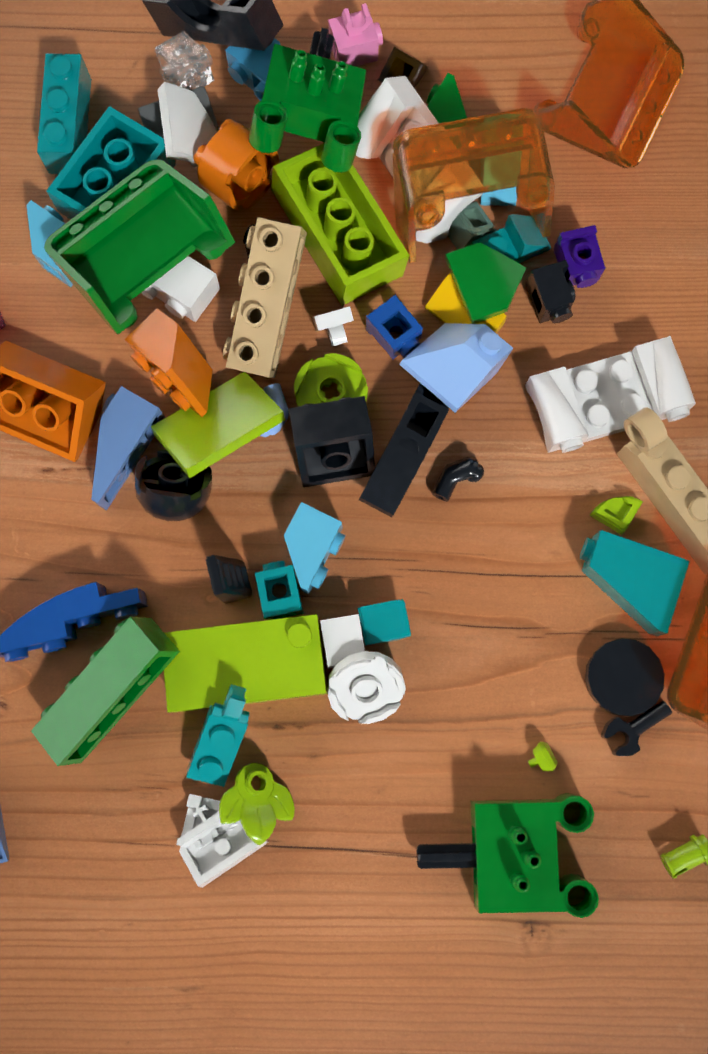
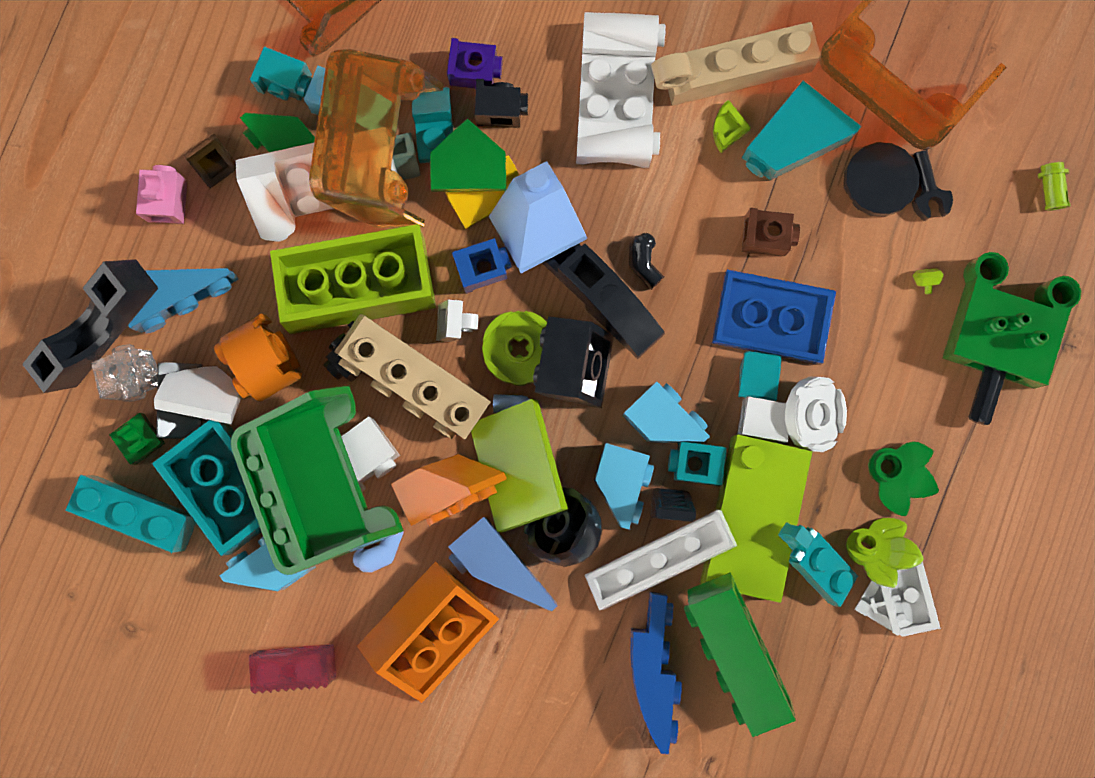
camera: 70 degrees left, 5 degrees up
(97, 336) = (379, 556): none -> light blue arm
(131, 95) = (136, 439): none -> green tile
(174, 586) = (660, 560): none -> white tile
(237, 523) = (620, 481): none -> medium azure slope
(311, 99) = (225, 260): green piece -> none
(338, 804) = (907, 478): none -> green plate
(449, 618) = (774, 317): none -> blue tile
(501, 90) = (281, 75): none -> teal brick
(516, 573) = (757, 238): none -> copper brick

